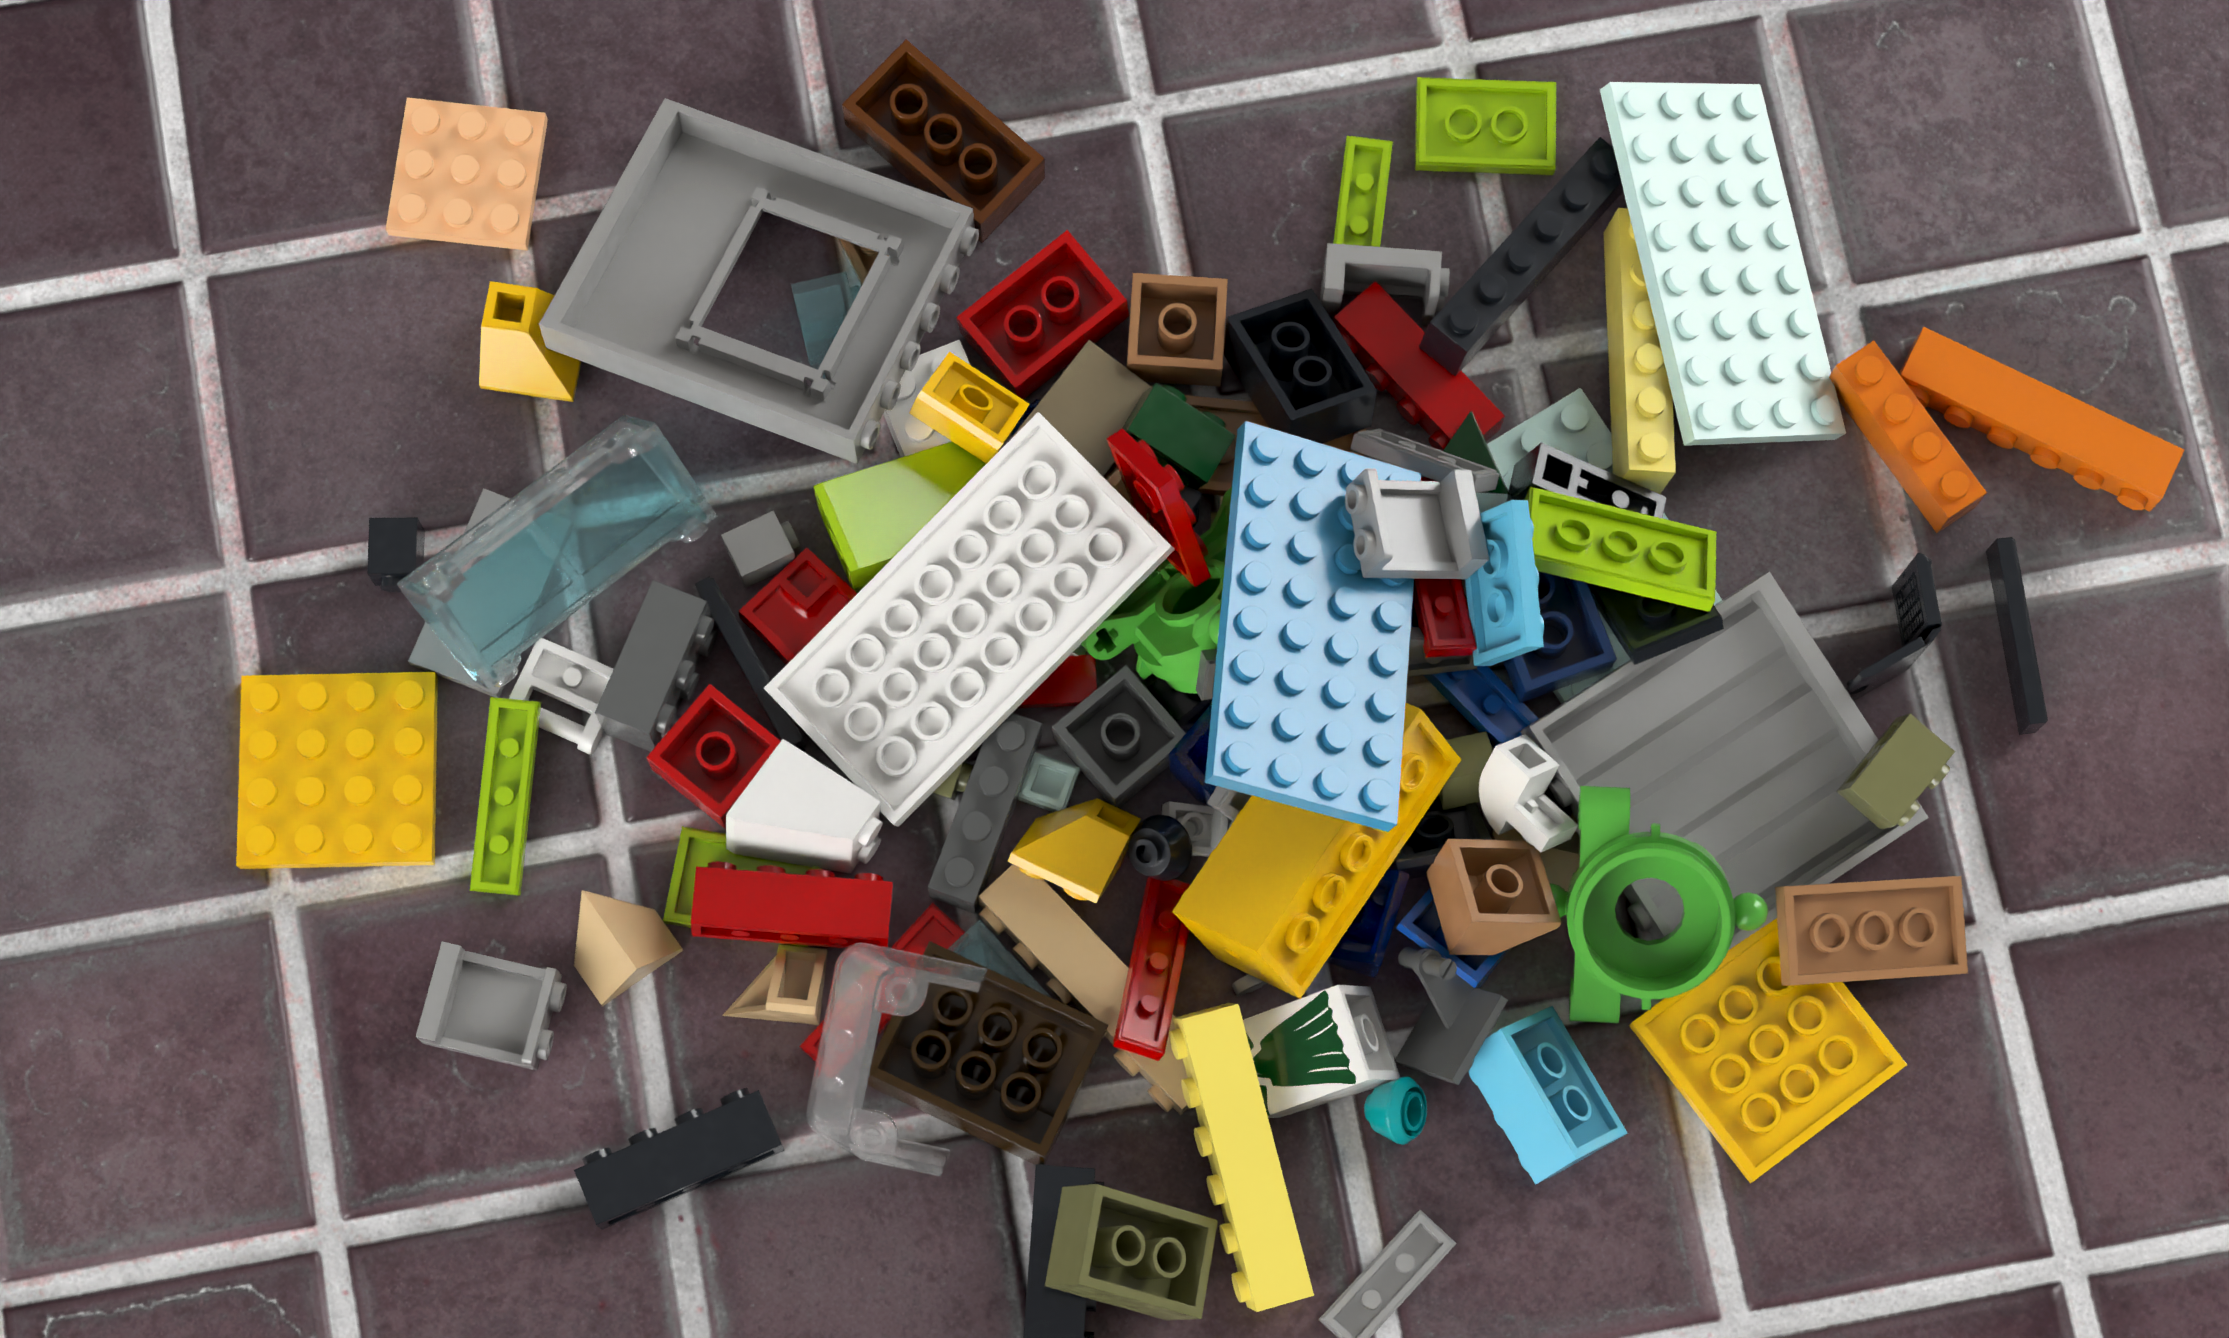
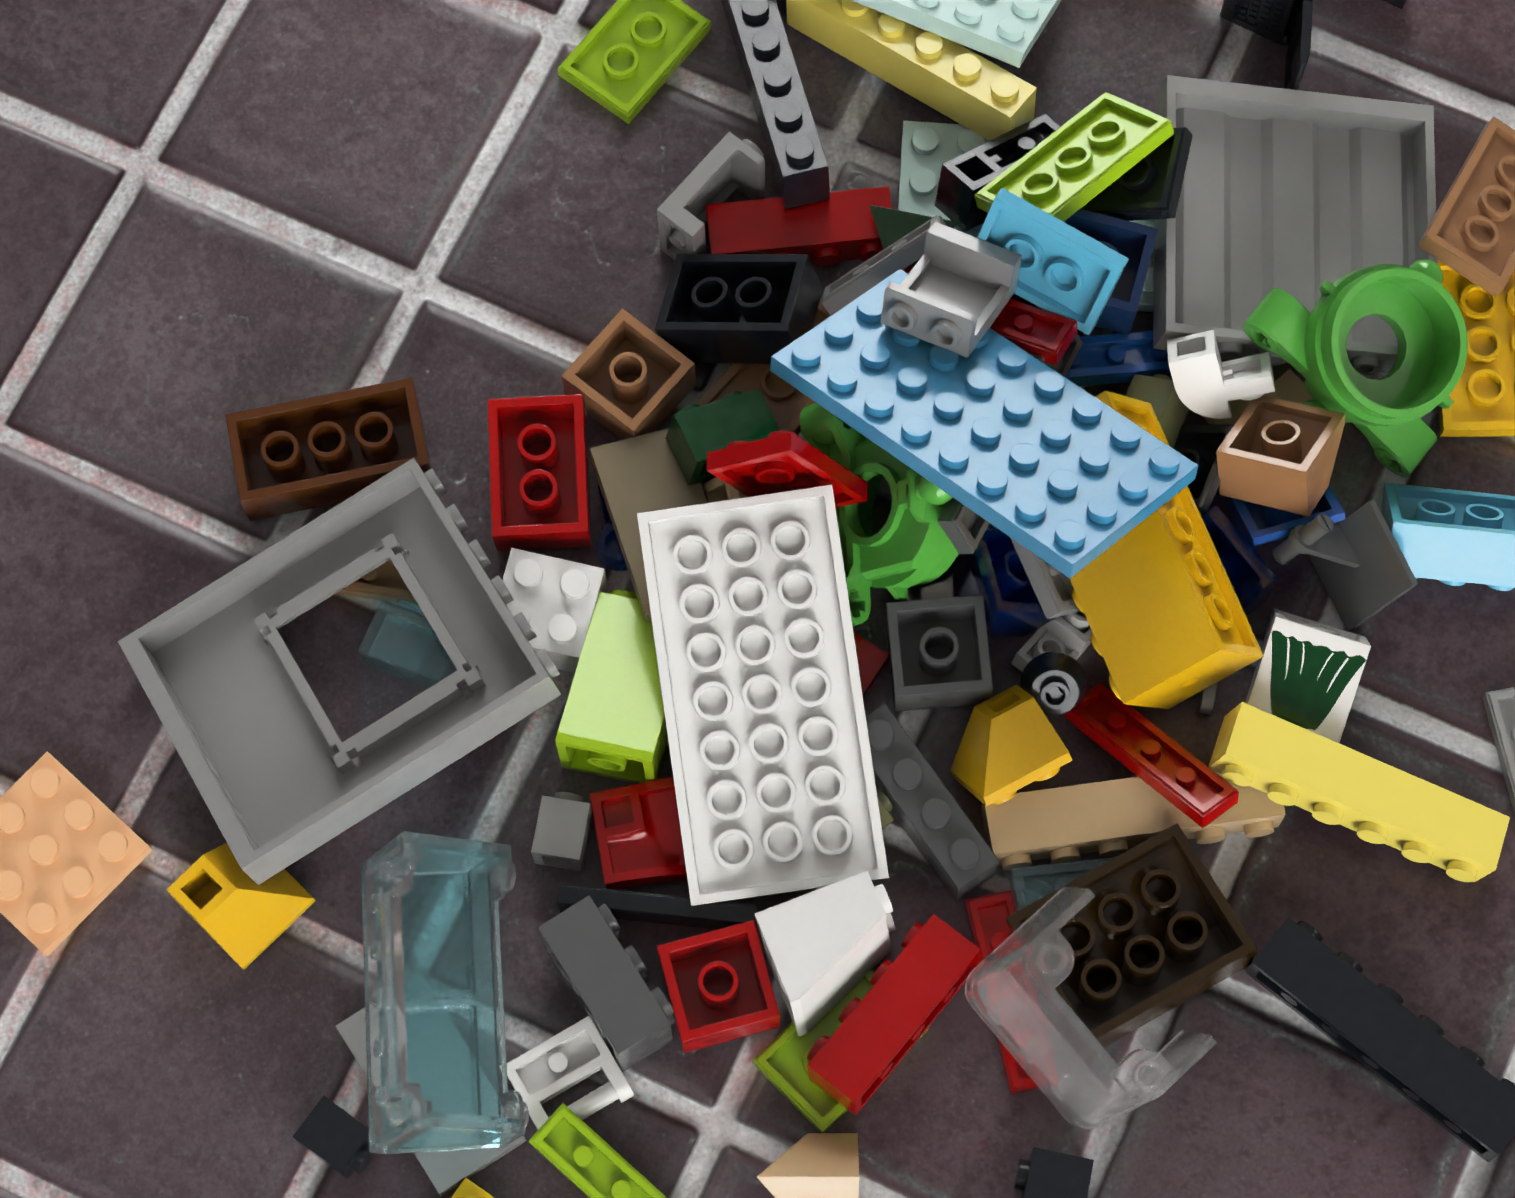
camera: 50 degrees left, 5 degrees down
(786, 988) = (953, 1068): tan slope -> none
(968, 408) = (582, 577): yellow slope -> none
(1048, 783) = (933, 737): light aqua tile -> none
(1131, 1252) = (1383, 933): olive brick -> none
(1363, 191) = (620, 174): lime tile -> none
(1397, 1110) = (1394, 653): teal cone -> none
(1897, 772) = (1389, 97): olive brick -> none

